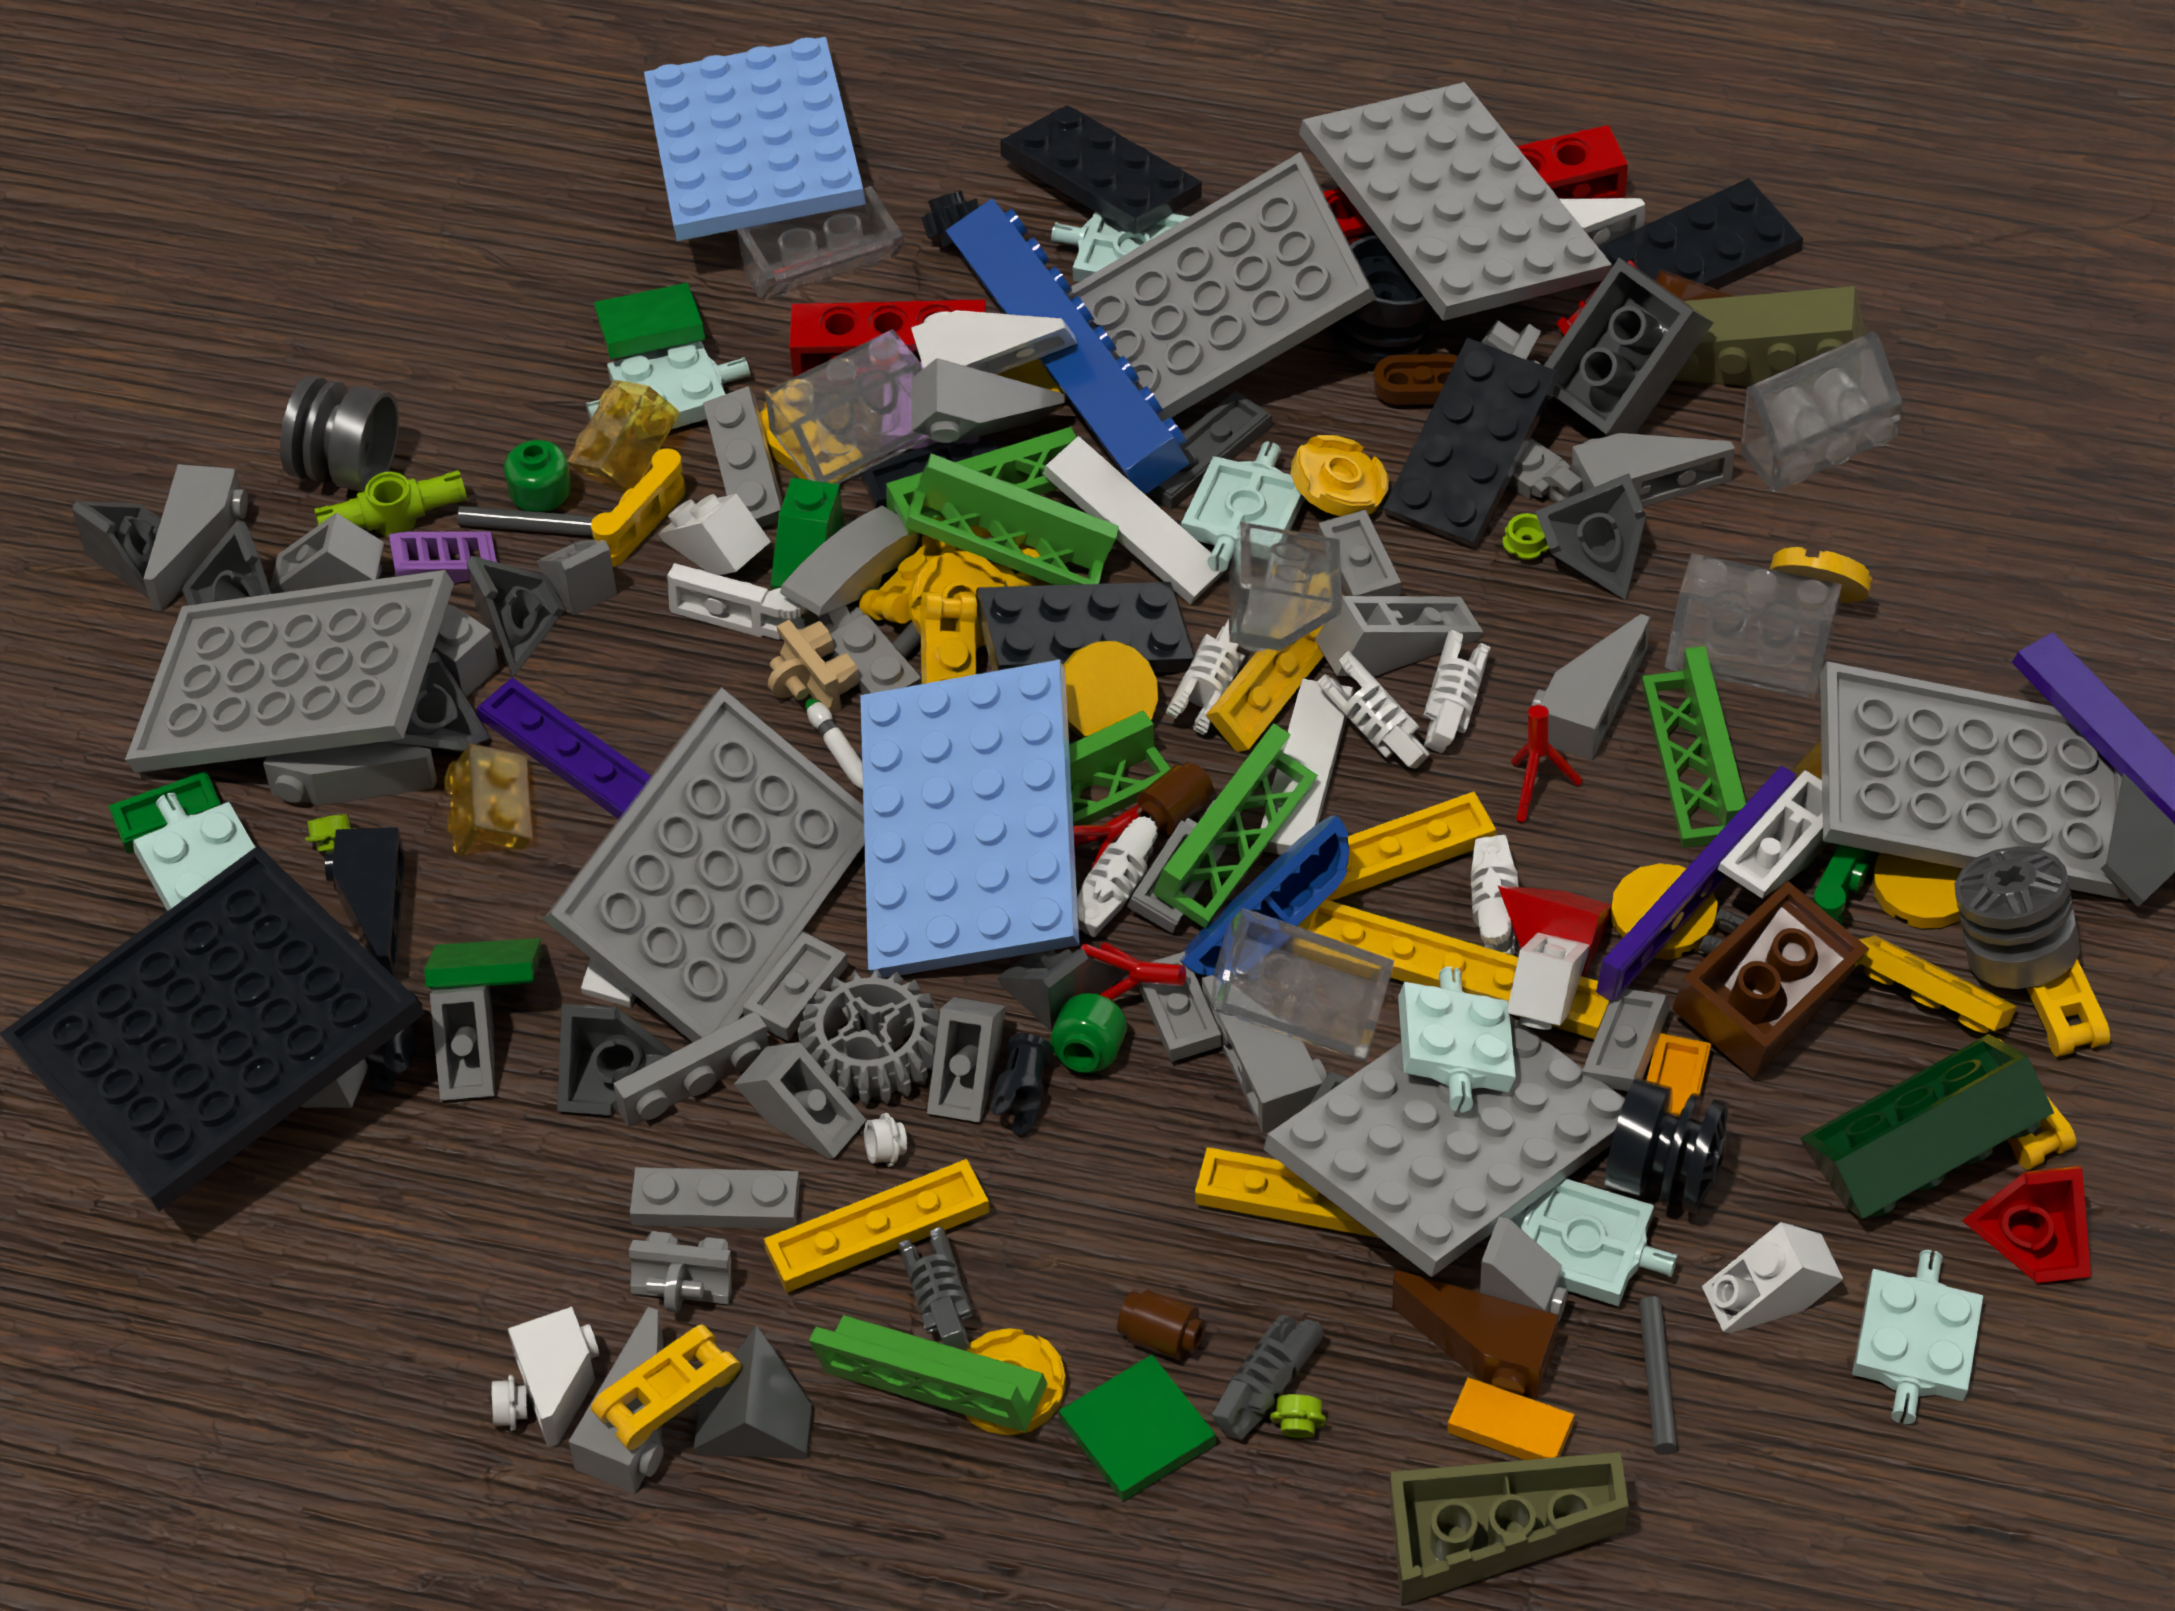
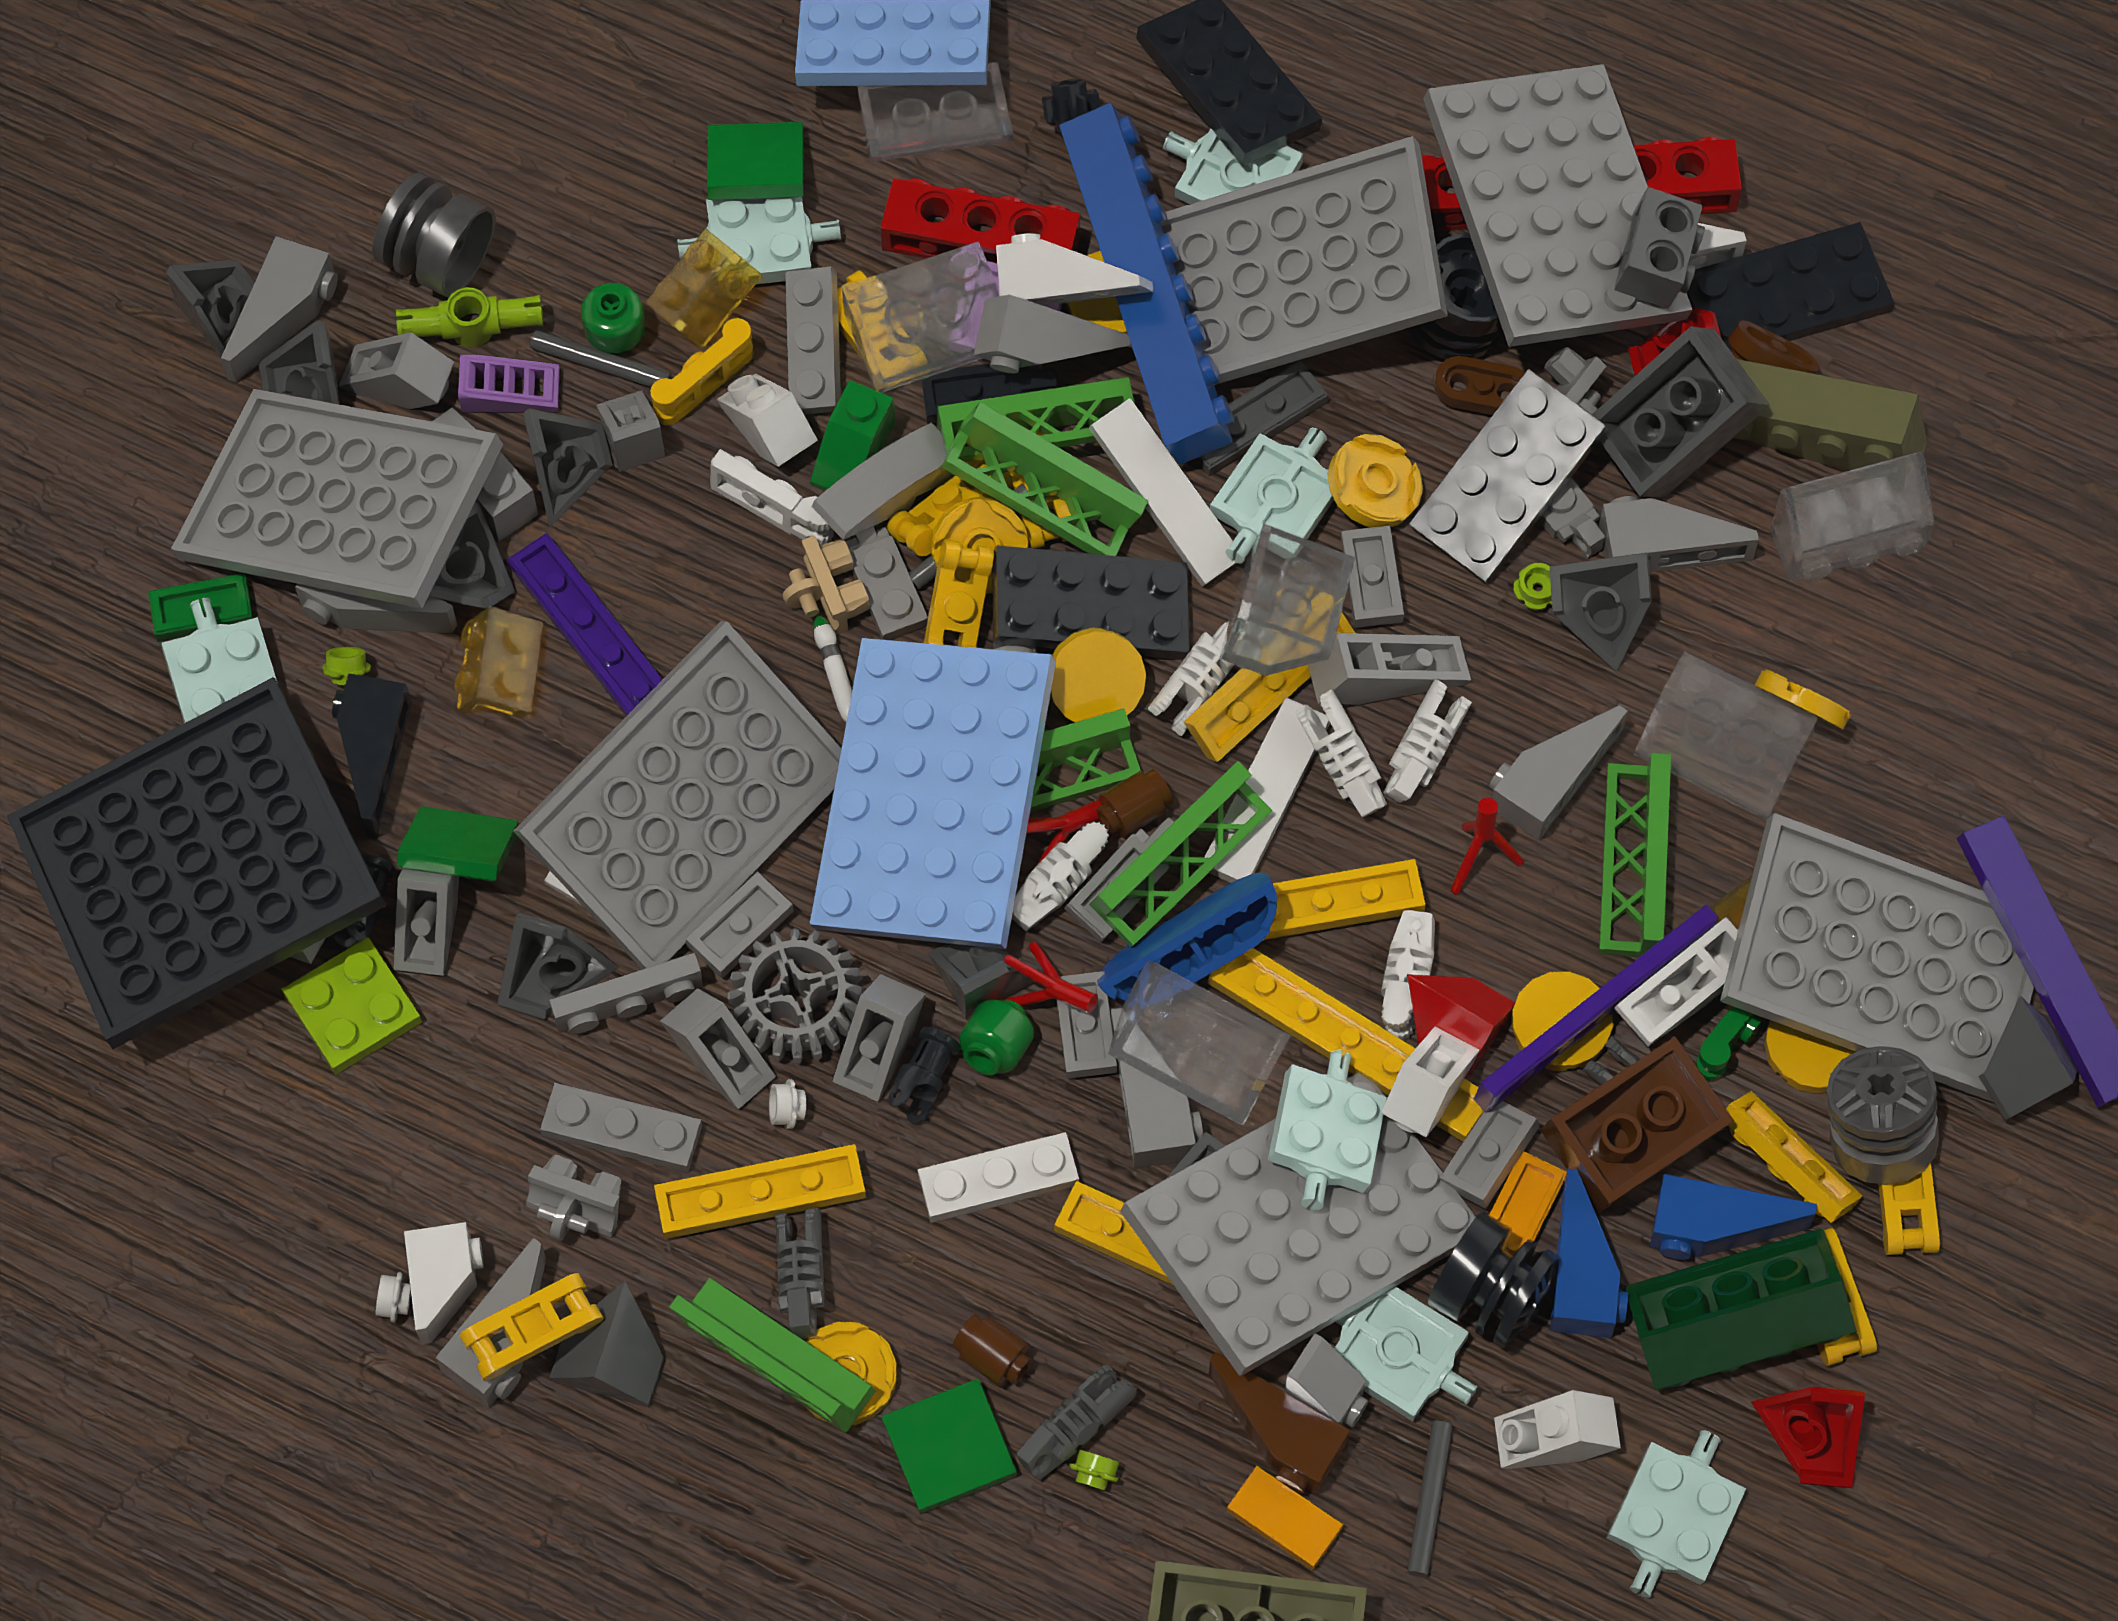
camera: 10 degrees right, 15 degrees up
(403, 1141) = (351, 1005): none -> lime plate
(1122, 1166) = (998, 1177): none -> white plate
(1567, 208) = (1653, 246): none -> dark grey brick
(1762, 1131) = (1586, 1274): none -> blue slope
(1873, 1052) = (1713, 1218): none -> blue slope

